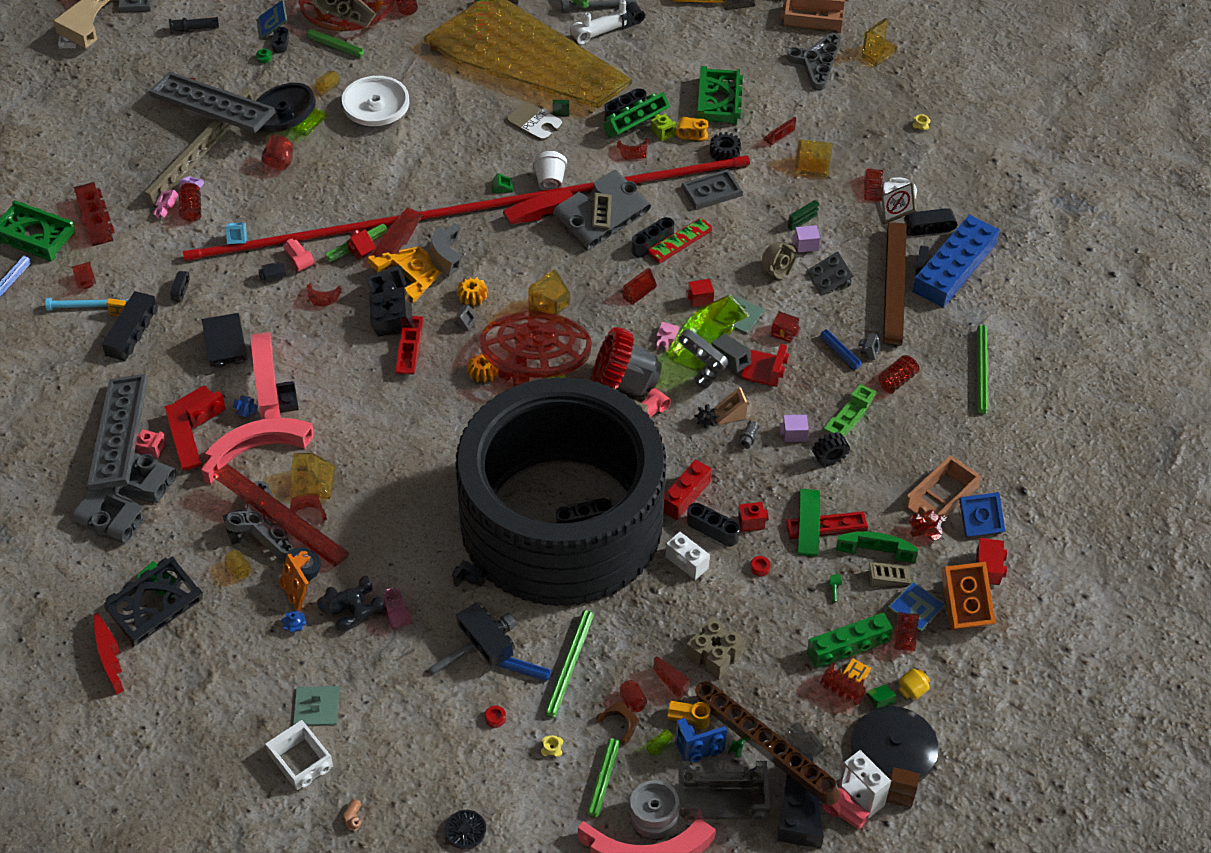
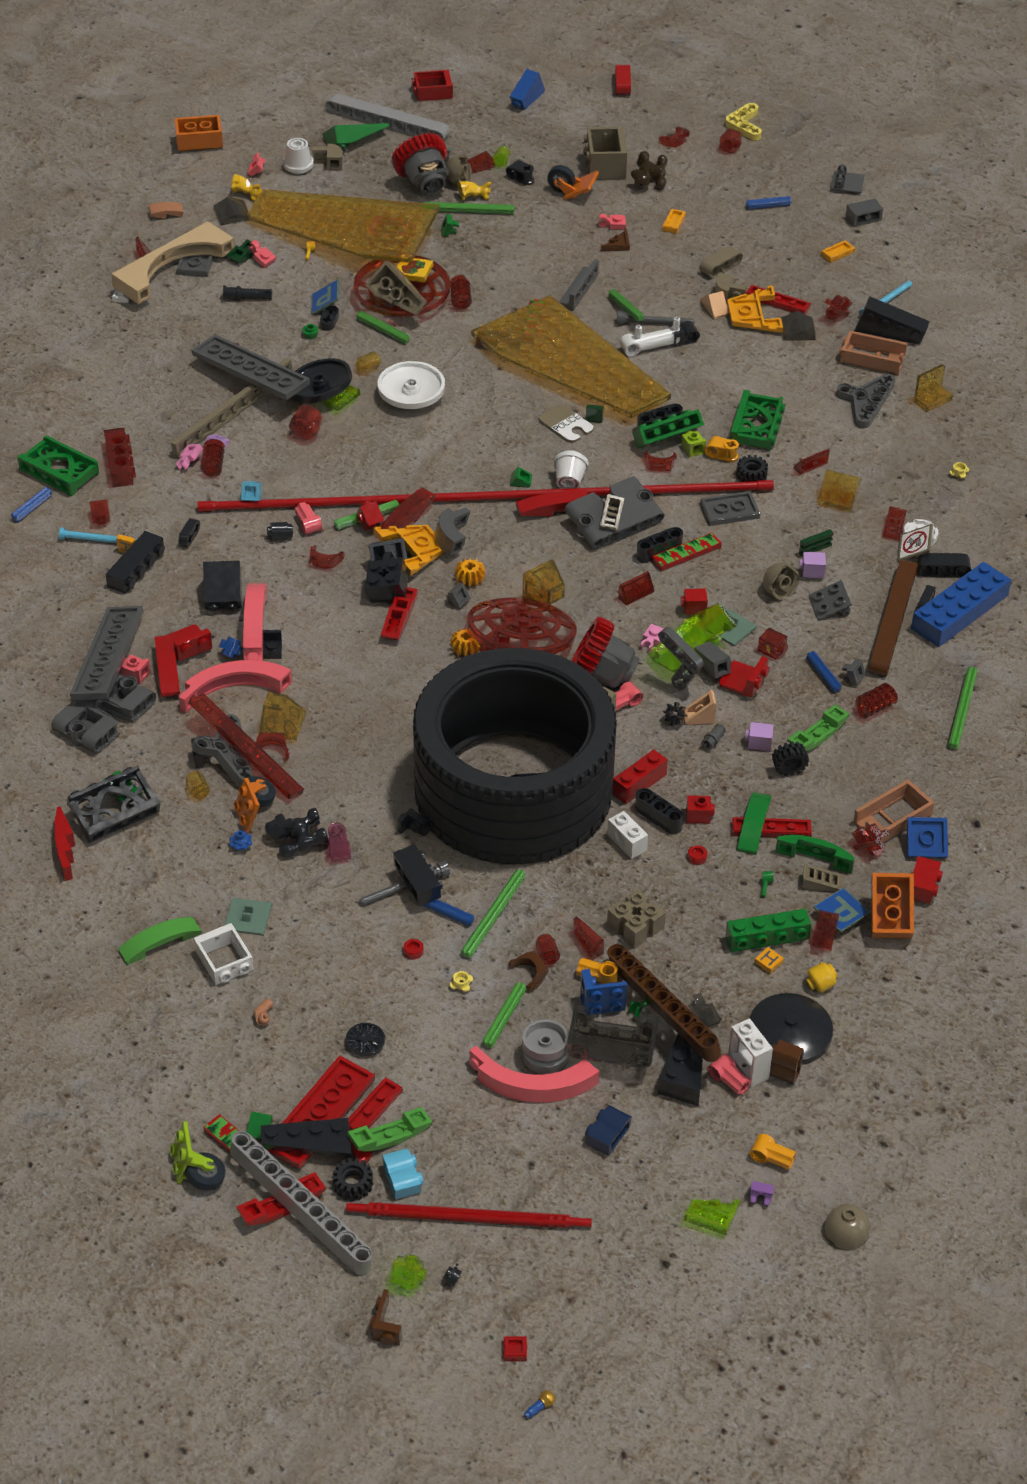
camera: 10 degrees right, 5 degrees down
(225, 745) = (157, 935): none -> bright green slope
(657, 744) = (559, 995): clear neon green pin -> none
(844, 684) = (753, 968): clear red piece -> none
(881, 696) = (788, 984): green slope -> none

